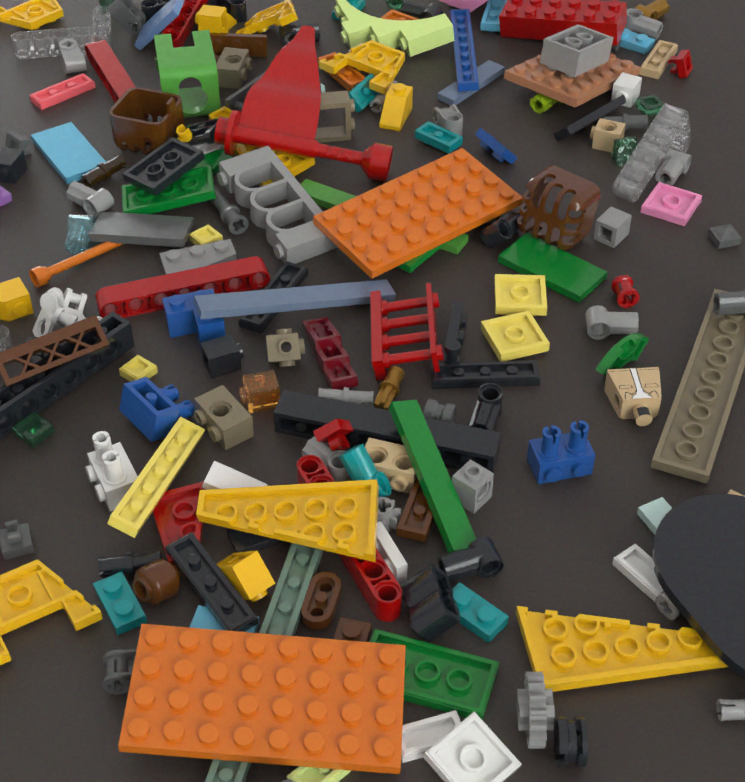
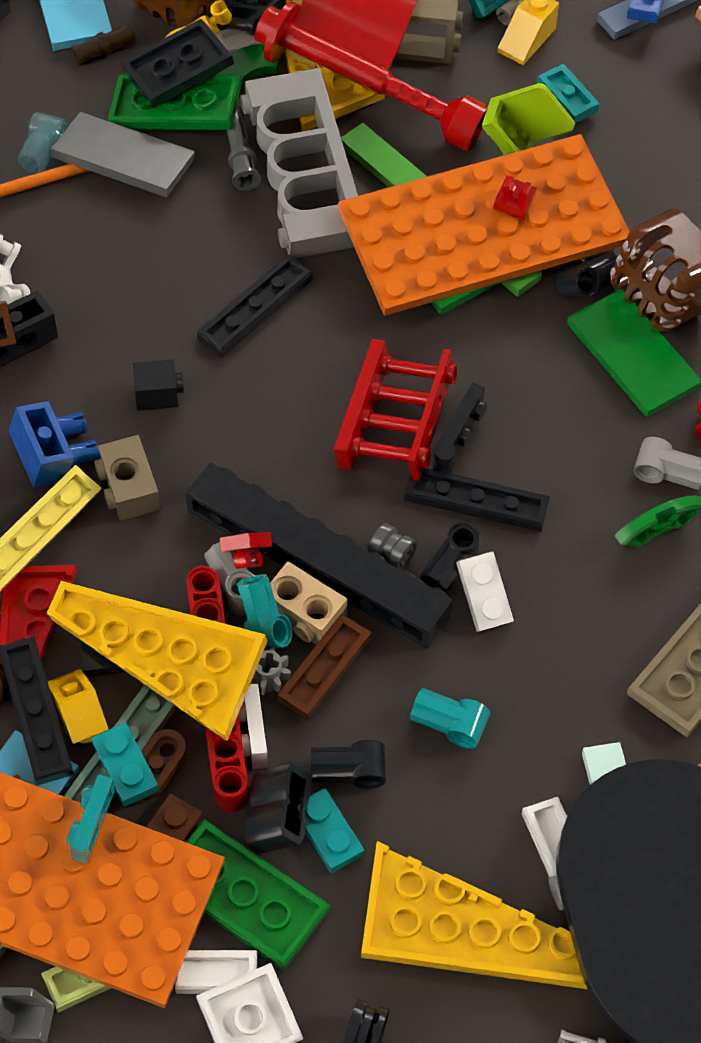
camera: 15 degrees right, 15 degrees up
(90, 199) = (74, 91): light grey piece -> none
(138, 368) = (51, 376): light yellow tile -> none
(147, 294) = (144, 264): red beam -> none
(183, 318) = (144, 312): blue brick -> none
(197, 256) = (170, 221): light grey wing -> none
(205, 235) = (201, 187): light yellow tile -> none
(225, 477) = (104, 574): white tile -> none
(259, 391) = (184, 451): clear orange brick -> none
(274, 350) = (226, 402): dark tan brick -> none
(290, 299) = (271, 324): sand blue tile -> none
(291, 625) = (96, 803): none -> teal plate
(298, 603) = (125, 764): none -> teal plate
(329, 353) = (292, 414): dark red slope -> none
(357, 397) = (288, 488): light grey pin -> none
(389, 388) = (346, 489): pearl gold axle -> none
(421, 145) = (525, 117): none -> lime bracket
(432, 475) = (343, 637): green tile -> none
(436, 187) = (514, 197): none -> red tile
(449, 118) = (593, 68): light grey piece -> none
(473, 485) = (390, 662): light grey brick -> none
(500, 151) = (640, 130): blue plate -> none
(515, 336) = (536, 451): light yellow plate -> none
(517, 423) = (484, 591): none -> white plate
(520, 294) = (570, 388): light yellow plate -> none
(535, 709) = (337, 984): light grey gear -> none
(542, 511) = (460, 721): none -> teal piece
(561, 455) = (517, 650): blue brick -> none
(634, 393) = (652, 583): tan torso -> none

